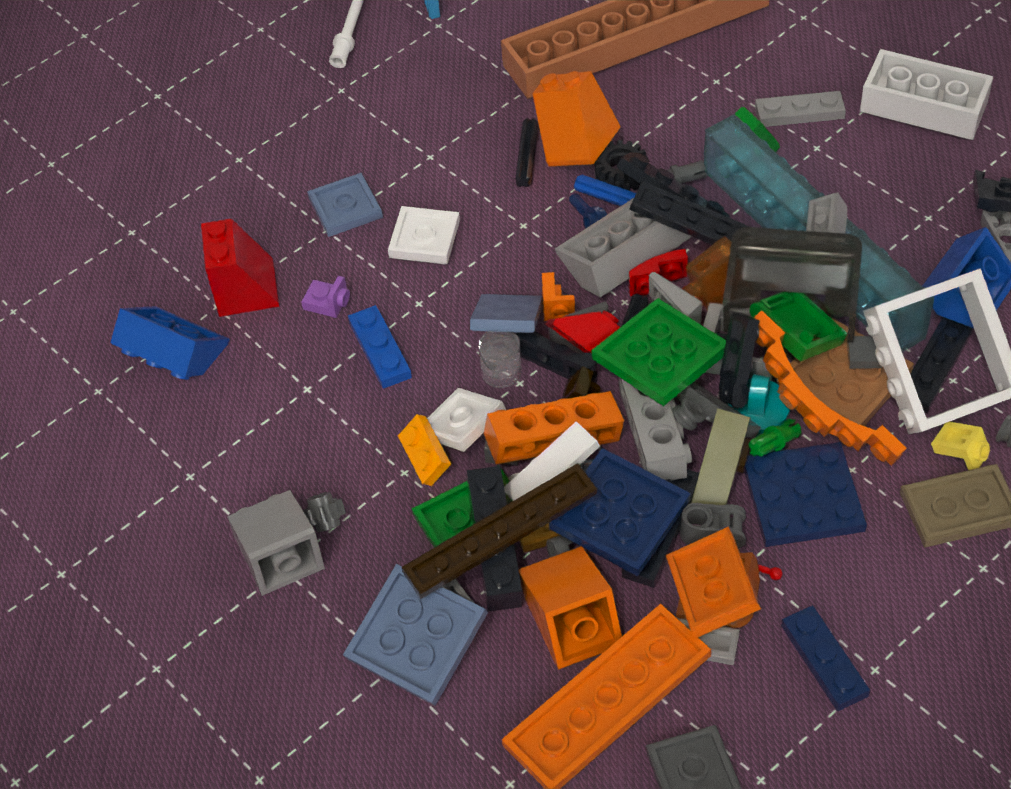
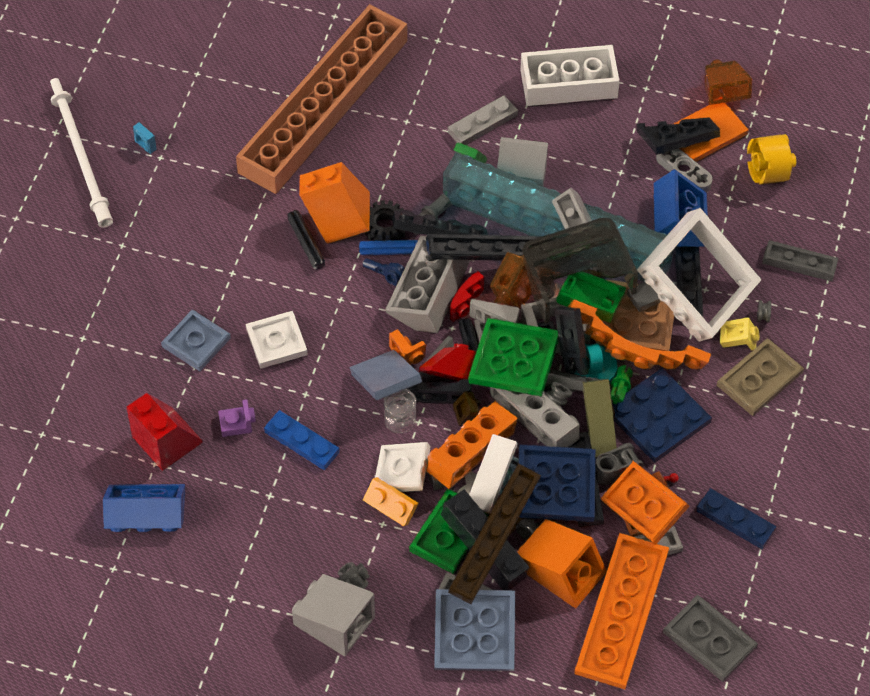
camera: 35 degrees left, 5 degrees up
(814, 155) = (524, 159): none -> light grey slope

